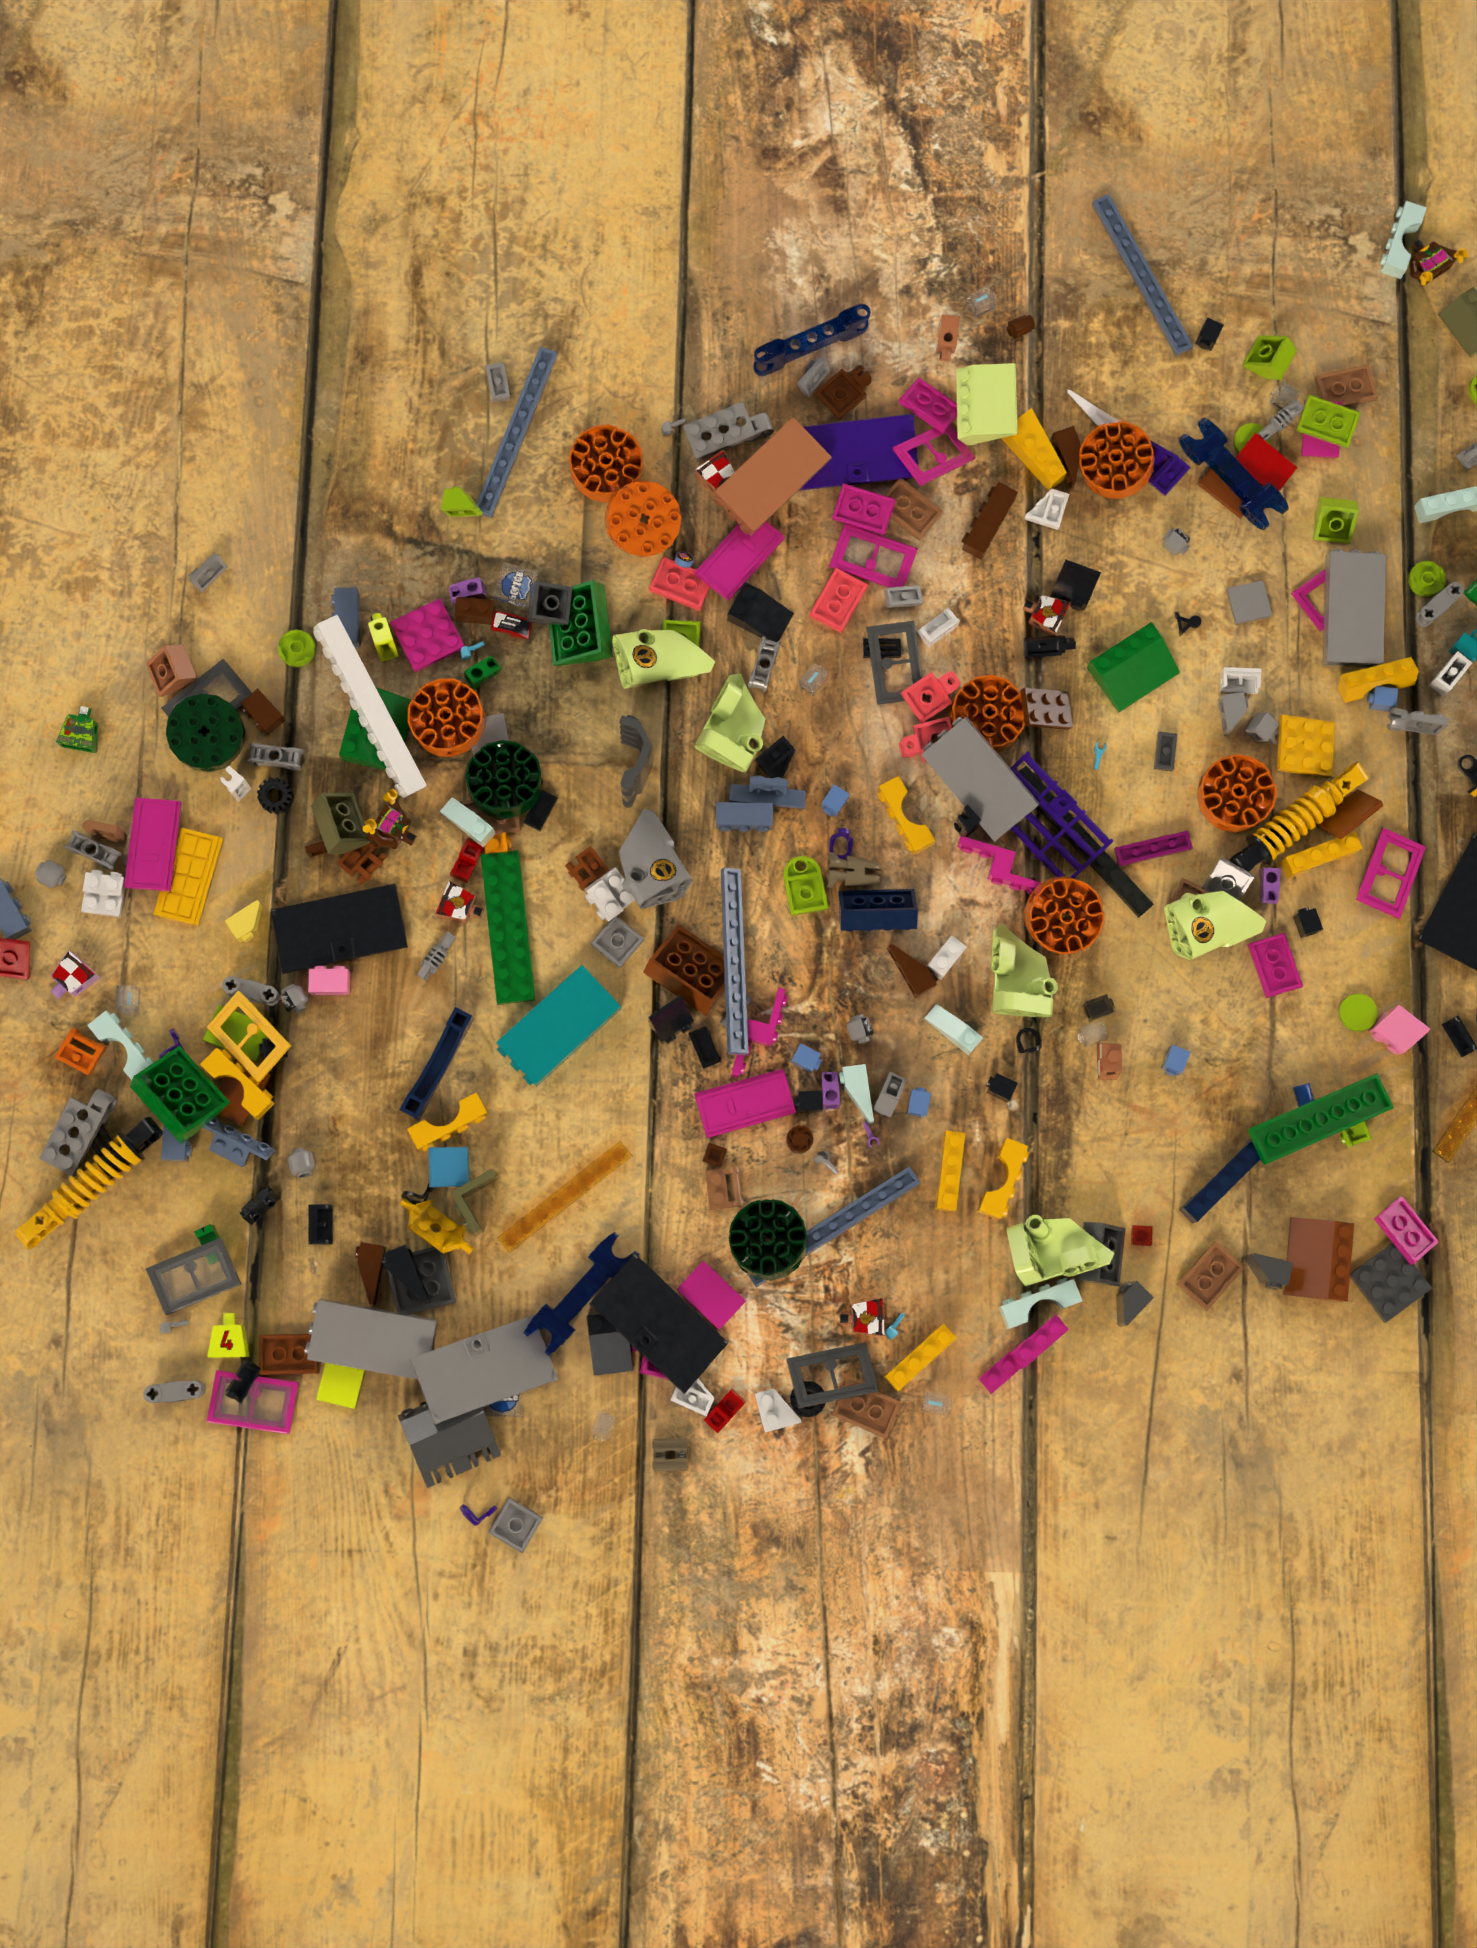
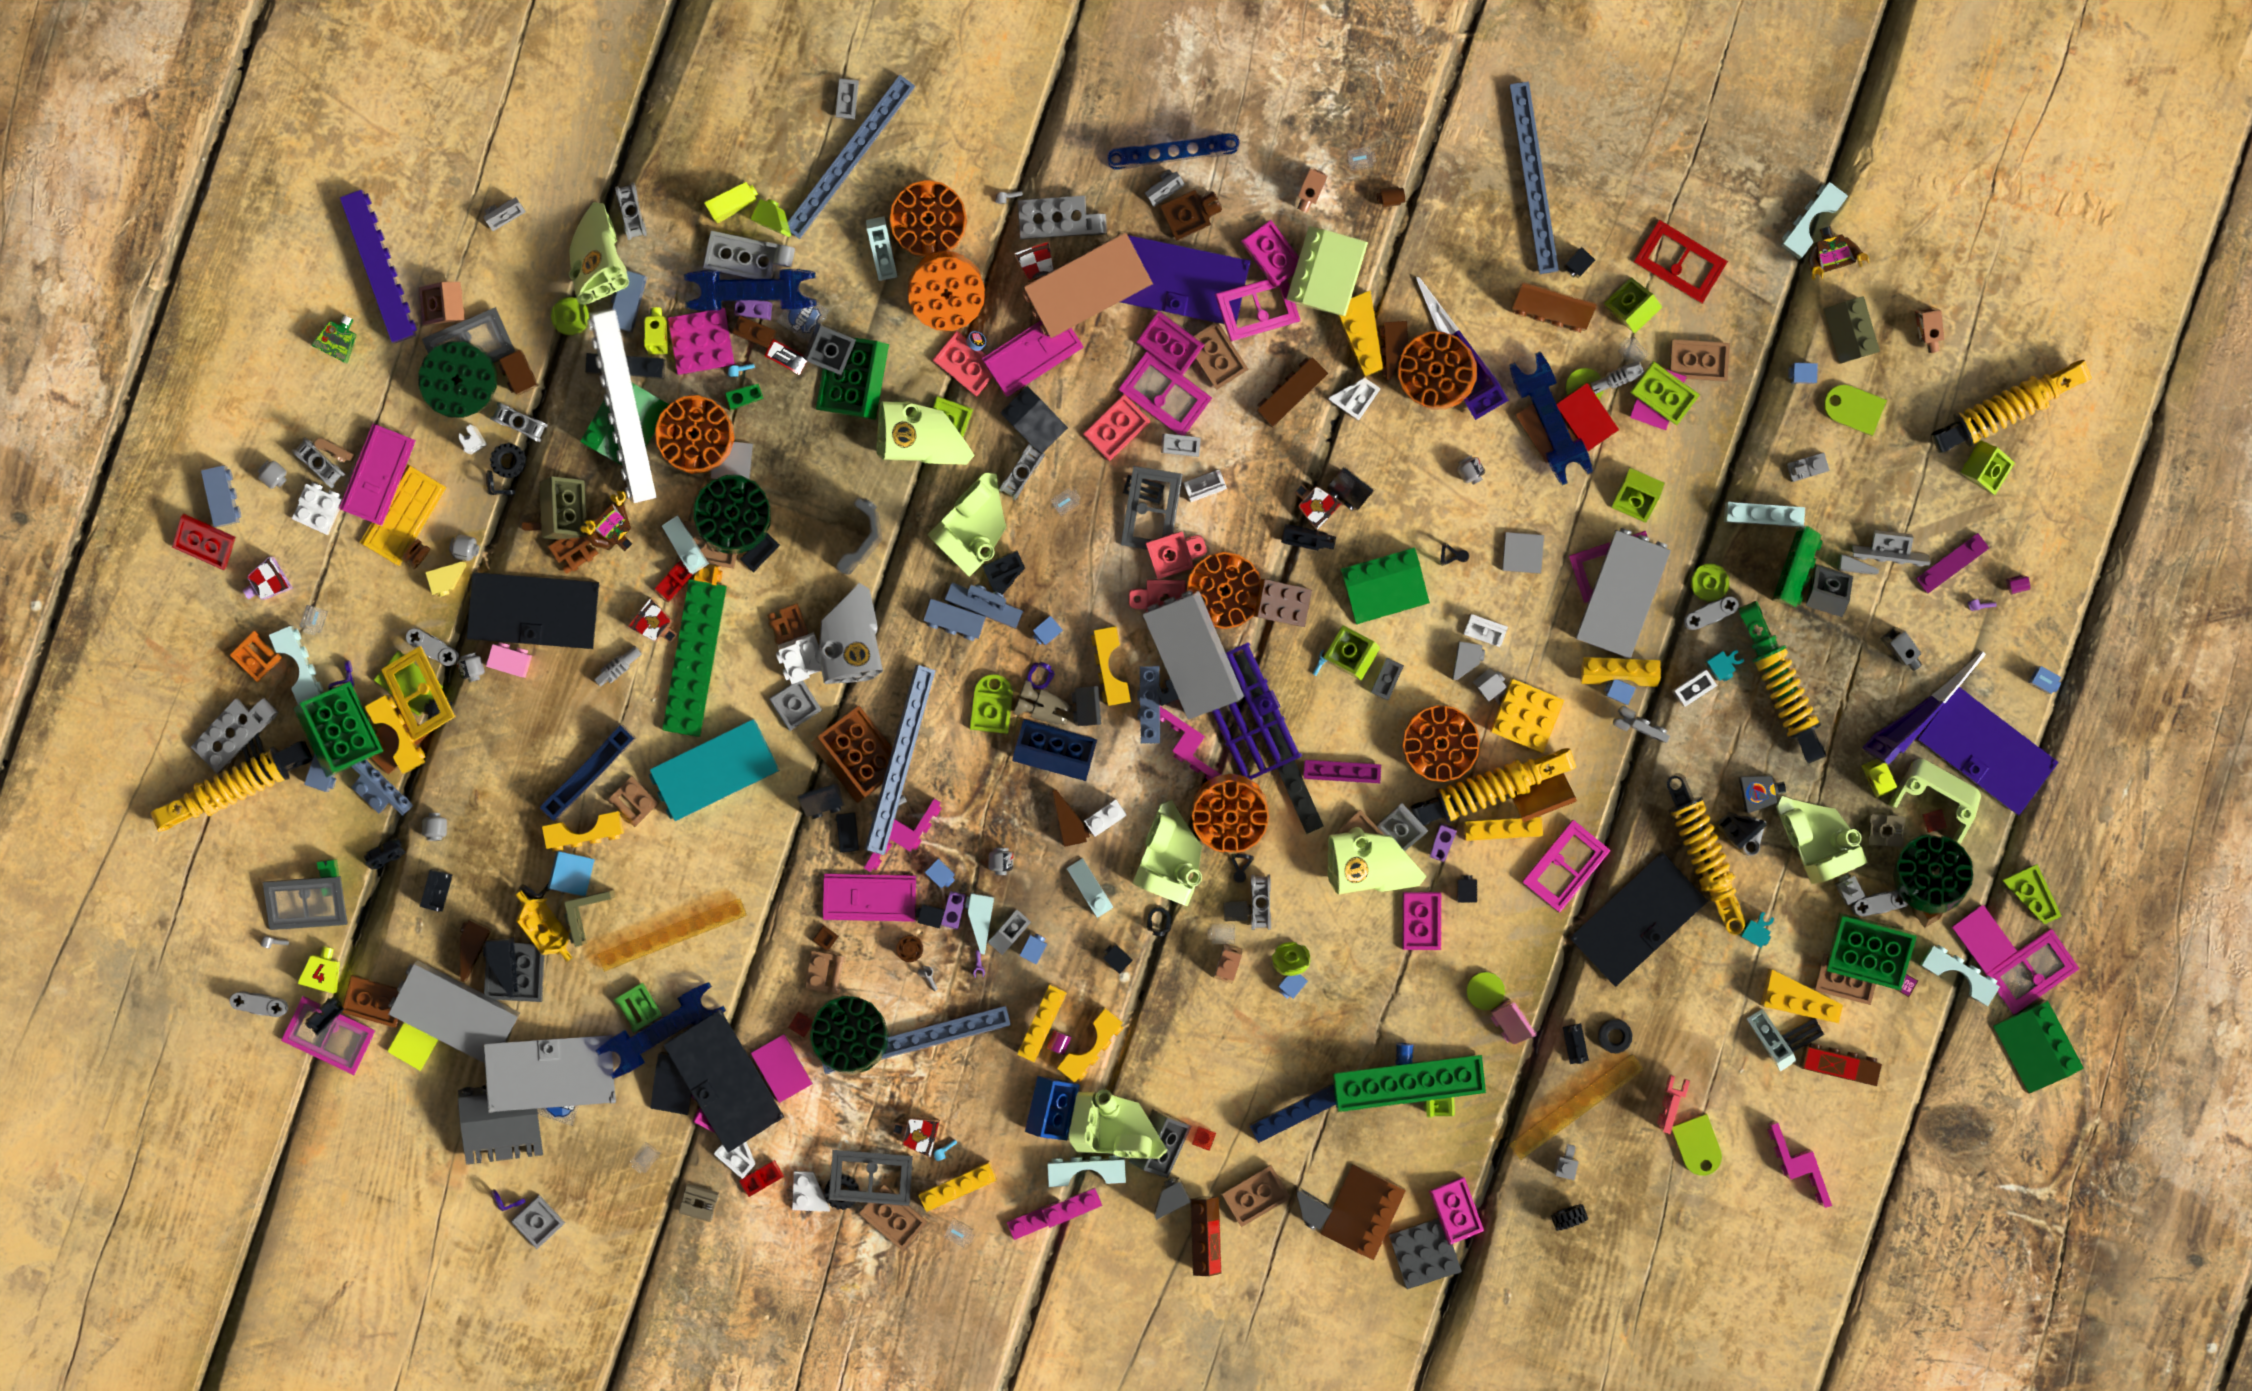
camera: 20 degrees right, 10 degrees up
(100, 653) = (378, 267): none -> dark purple brick
(210, 907) = (416, 554): none -> reddish brown wheel
(255, 888) = (464, 547): none -> light grey head
(282, 826) = (490, 486): none -> black piece
(302, 586) = (594, 258): none -> yellowish green panel
(321, 526) = (628, 198): none -> light grey piece
(380, 671) = (637, 366): none -> black arch
(417, 501) = (731, 202): none -> neon yellow slope
(474, 534) = (776, 253): none -> light grey hinge
(489, 562) = (717, 290): none -> clear blue piece
(491, 1074) = (637, 796): none -> medium nougat plate
(557, 1274) = (643, 1004): none -> bright green plate
(570, 502) = (881, 248): none -> light aqua slope
(717, 1245) = (801, 1024): none -> clear red plate
(896, 857) = (1087, 706): none -> dark grey slope
(952, 833) = (1149, 704): none -> sand blue bracket
(971, 1185) = (1059, 1042): none -> magenta brick
(986, 1251) = (1052, 1108): none -> blue slope
(1090, 975) = (1239, 875): none -> black piece
(1119, 981) = (1260, 888): none -> light grey piece
(1125, 735) = (1352, 652): none -> lime slope
(1167, 1036) = (1291, 959): none -> lime tile
(1177, 1330) = (1205, 1236): none -> reddish brown brick
(1202, 373) = (1553, 307): none -> dark orange slope
(1294, 325) = (1671, 277): none -> red door
(1443, 371) = (1803, 373): none -> medium blue brick

